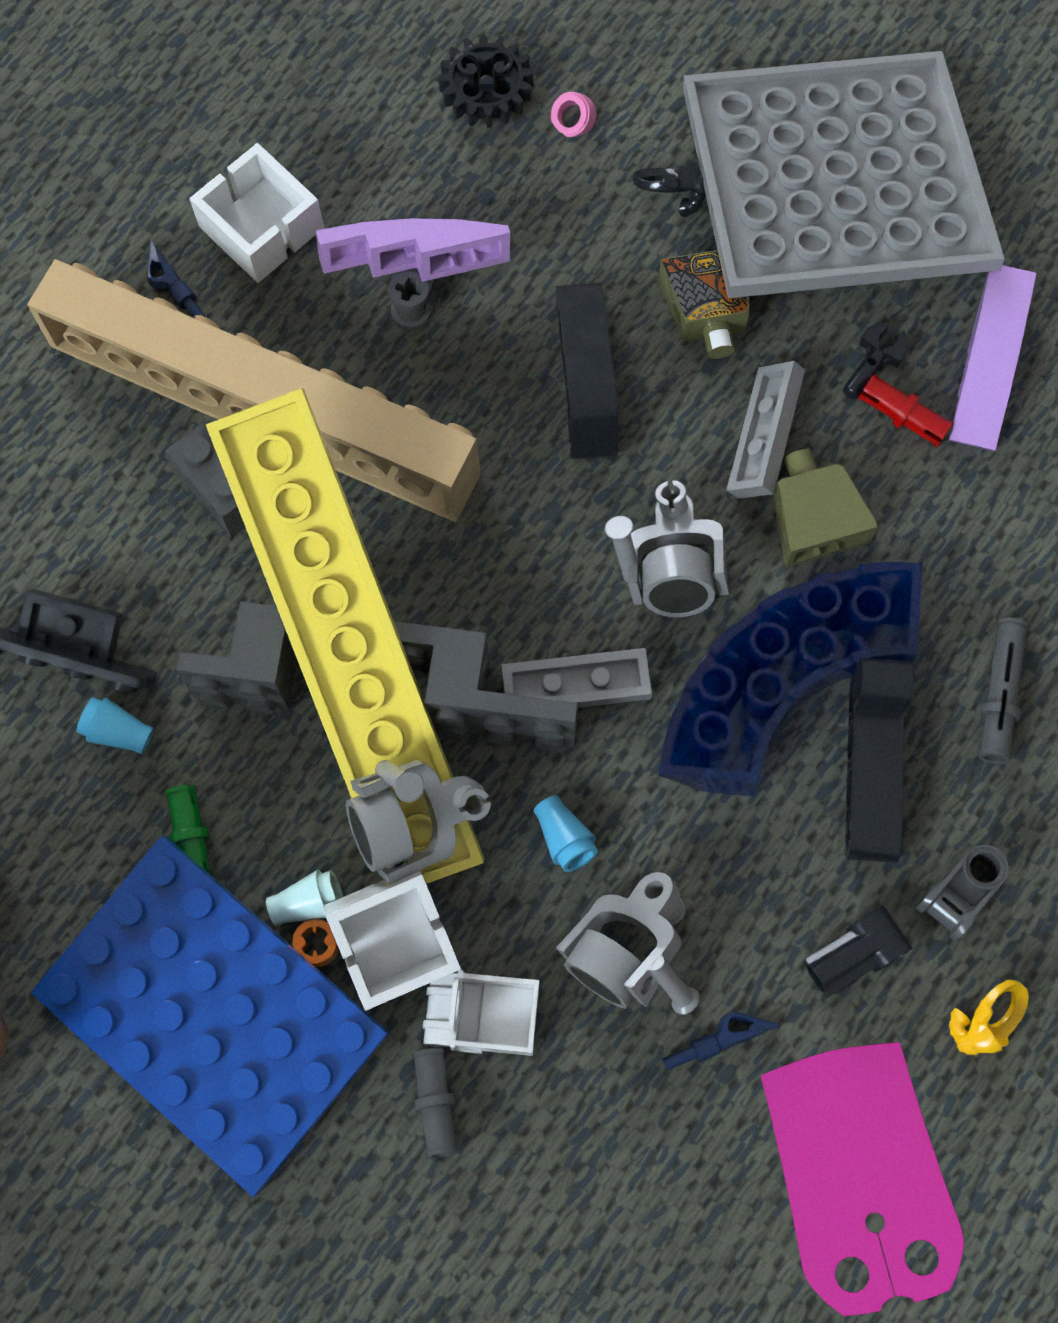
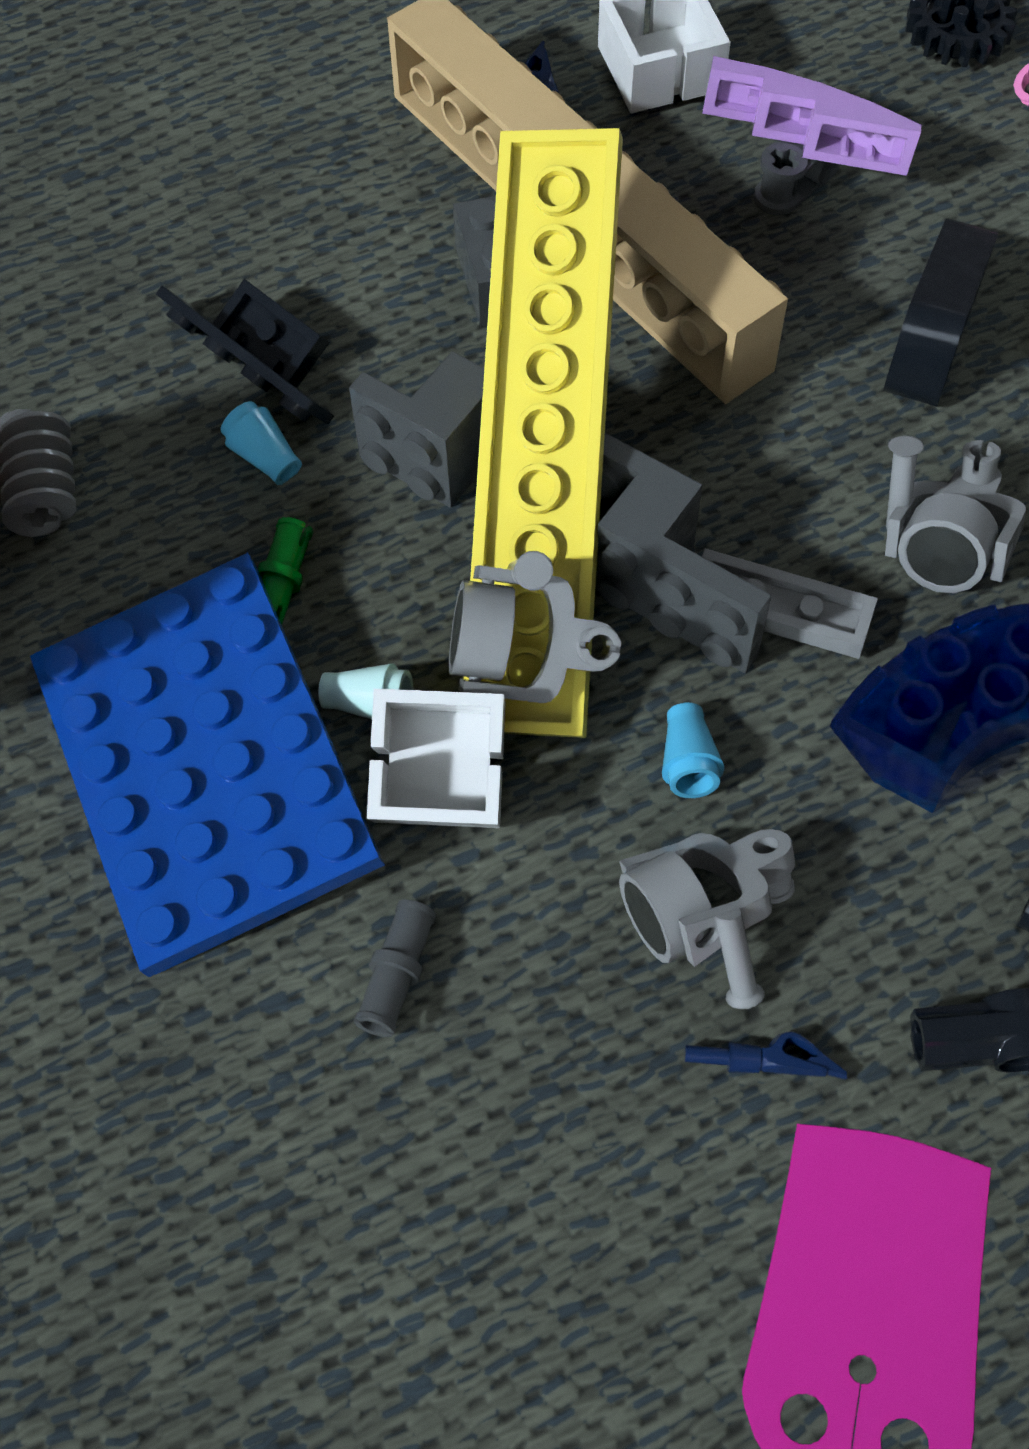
camera: 25 degrees right, 10 degrees down
(300, 944) = (349, 724): orange bush -> none
(482, 1013) = (500, 896): white piece -> none

